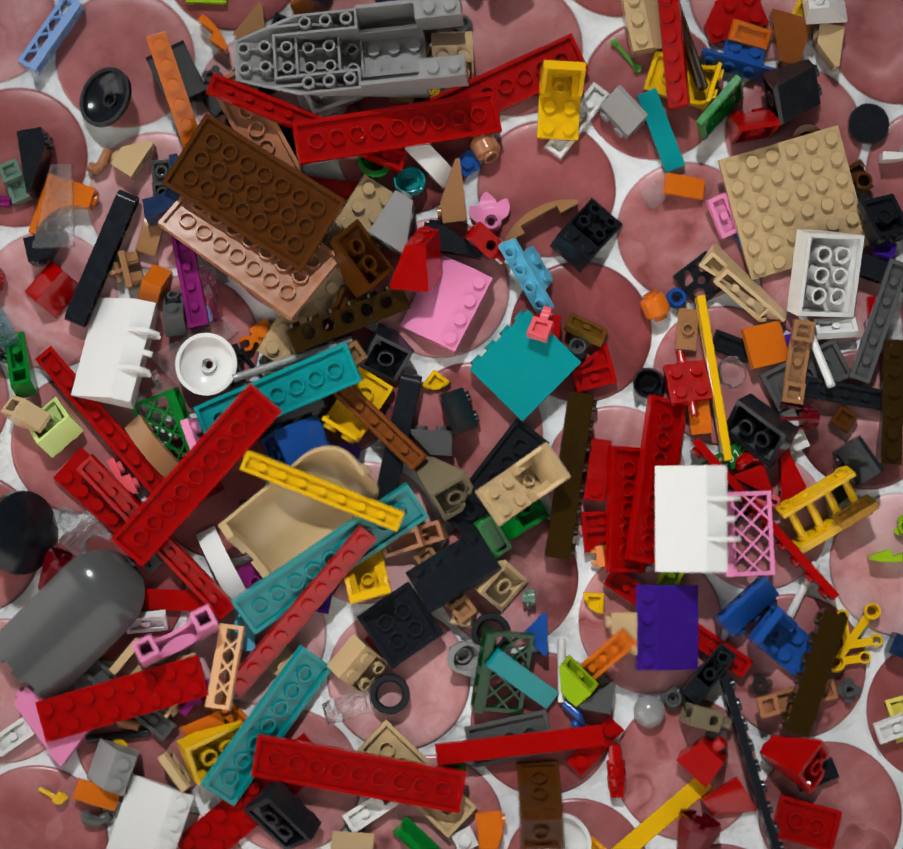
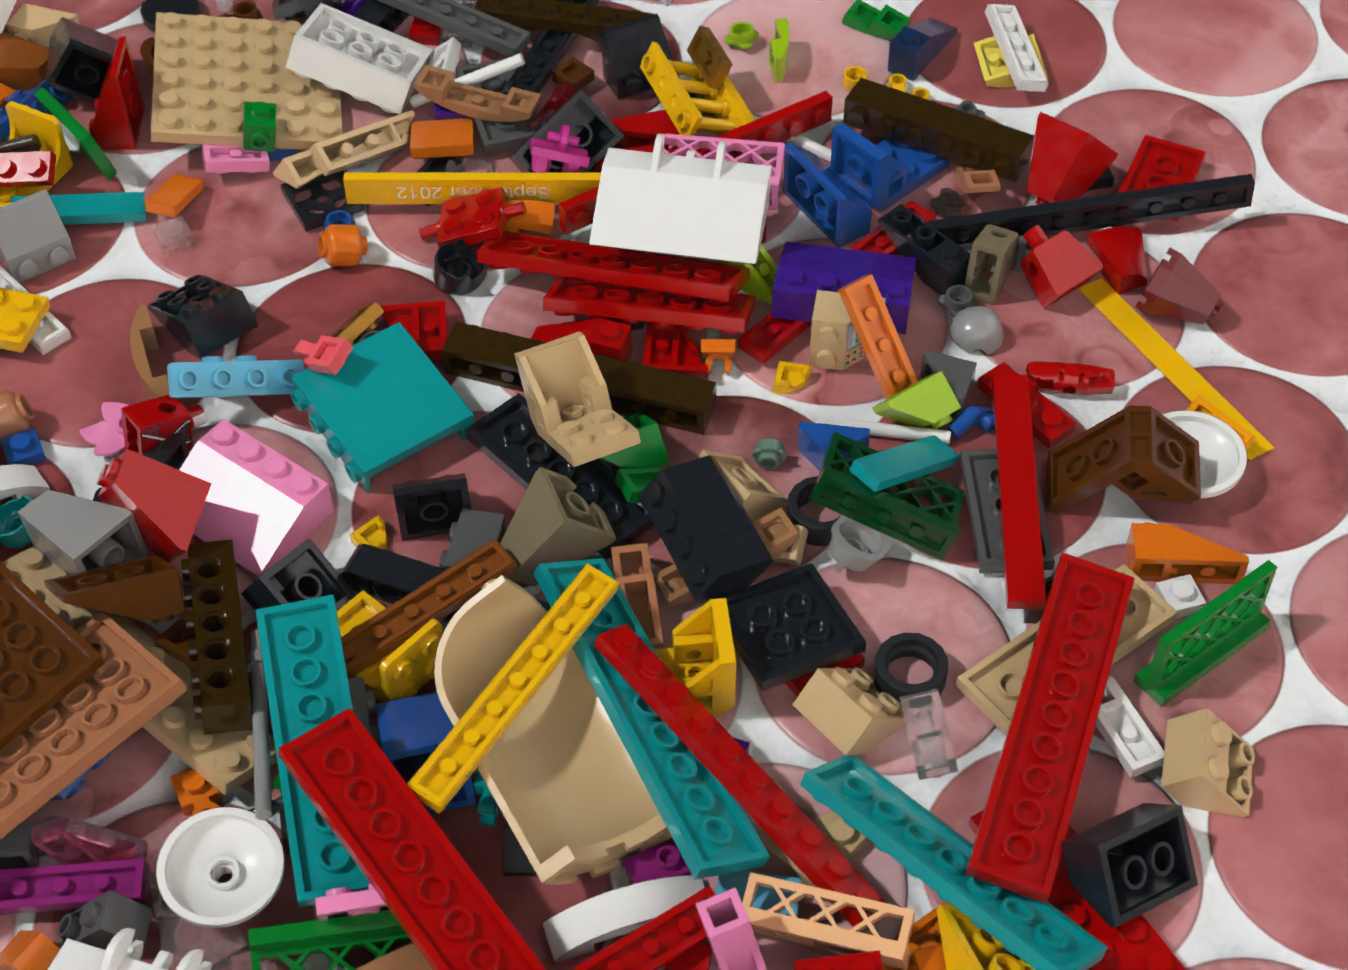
camera: 80 degrees left, 35 degrees down
(452, 202) = (63, 461): medium nougat slope -> none
(686, 330) = (391, 221): medium nougat plate -> none
(741, 429) = (545, 151): none -> dark pink hips
(745, 226) = (259, 126): none -> green bracket

